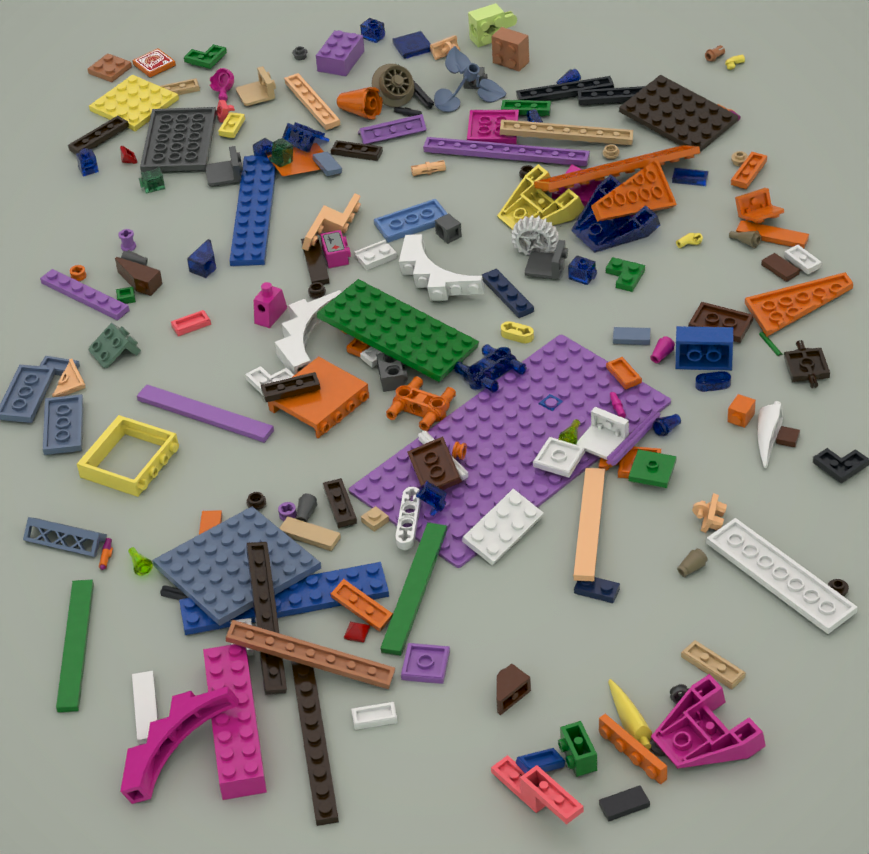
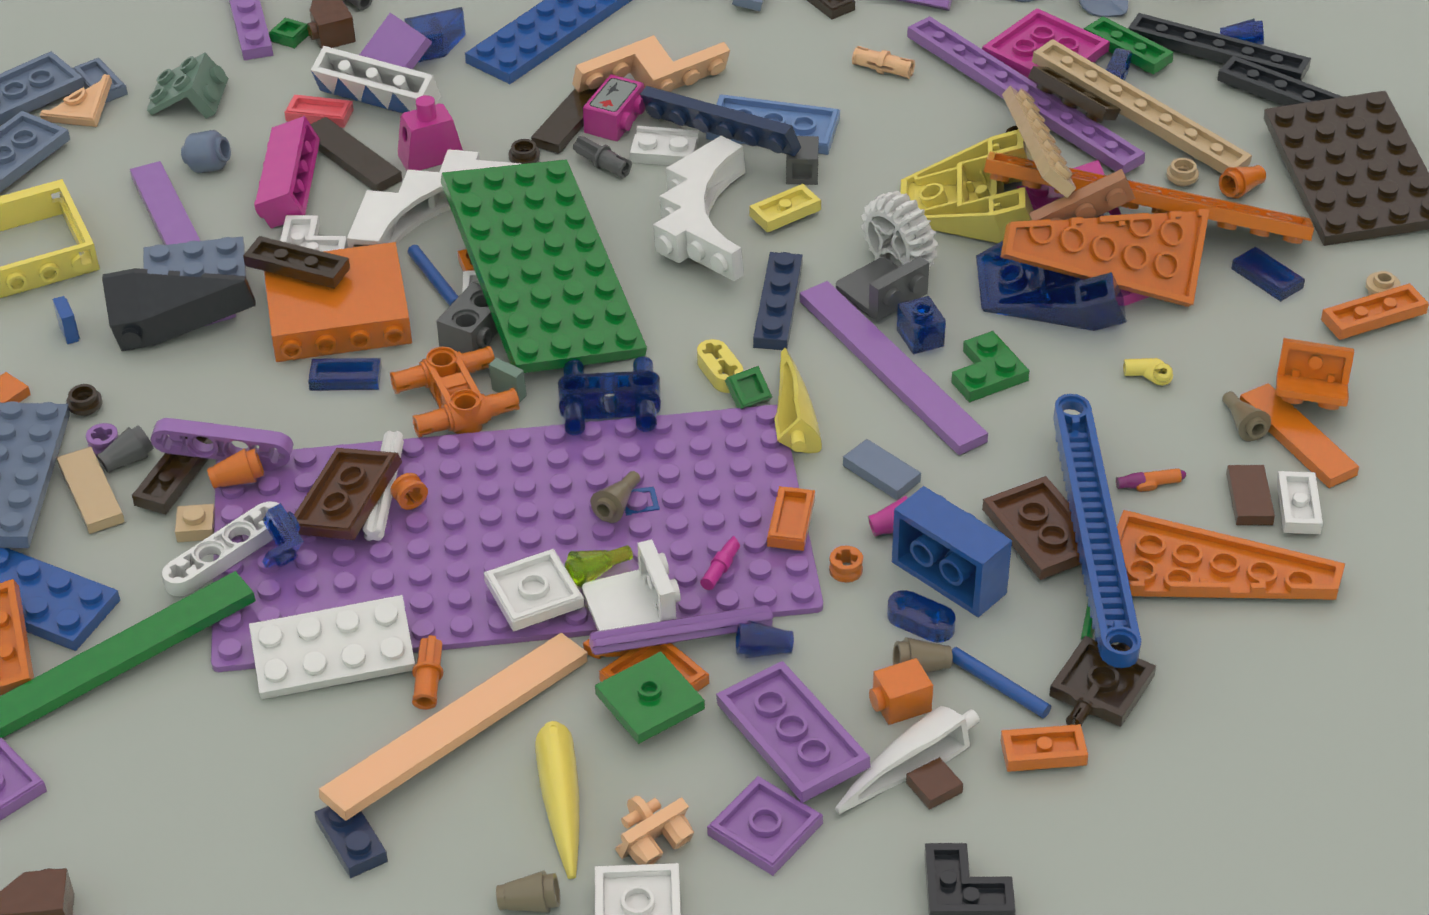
camera: 35 degrees right, 0 degrees up
(165, 367) = (206, 151): none -> sand blue head
(198, 276) = (396, 43): none -> medium lavender tile
(201, 473) = (66, 320): none -> blue tile
(210, 294) = (371, 80): none -> white brick
(221, 355) = (287, 171): none -> dark pink brick
(233, 418) = (197, 257): none -> sand blue plate
(234, 333) = (355, 156): none -> dark brown tile
(246, 442) = (159, 307): none -> black wedge
(334, 485) = (222, 440): none -> medium lavender beam
(349, 365) = (432, 274): none -> blue bar
(355, 273) = (602, 157): none -> dark grey axle
(358, 425) = (345, 374): none -> clear blue tile
(374, 483) = (237, 469): none -> orange cone
(397, 228) = (721, 121): none -> dark blue plate
(437, 385) = (507, 376): none -> sand green tile
(464, 252) = (785, 208): none -> light yellow plate
(534, 140) = (1073, 94): none -> dark brown plate
(542, 334) = (748, 388): none -> green tile
(548, 407) = (611, 501): none -> dark tan cone
(552, 513) = (427, 673): none -> orange axle
(561, 164) = (1039, 141): none -> tan plate
(572, 331) = (795, 414): none -> light yellow piece
(586, 293) = (894, 368): none -> medium lavender tile
(612, 180) = (1089, 200): none -> nougat plate
(638, 144) = (1240, 180): none -> orange cone
(653, 520) = (560, 790): none -> light yellow piece
(661, 378) = (842, 572): none -> orange bush
(718, 448) = (793, 731): none -> medium lavender plate
(729, 394) = (929, 654): none -> dark tan cone
(737, 283) = (1149, 480): none -> orange piece
(745, 488) = (765, 825): none -> medium lavender tile
(747, 309) = (1096, 532): none -> blue gear
(768, 387) = (1000, 683): none -> blue bar
(813, 400) = (1044, 747): none -> orange plate

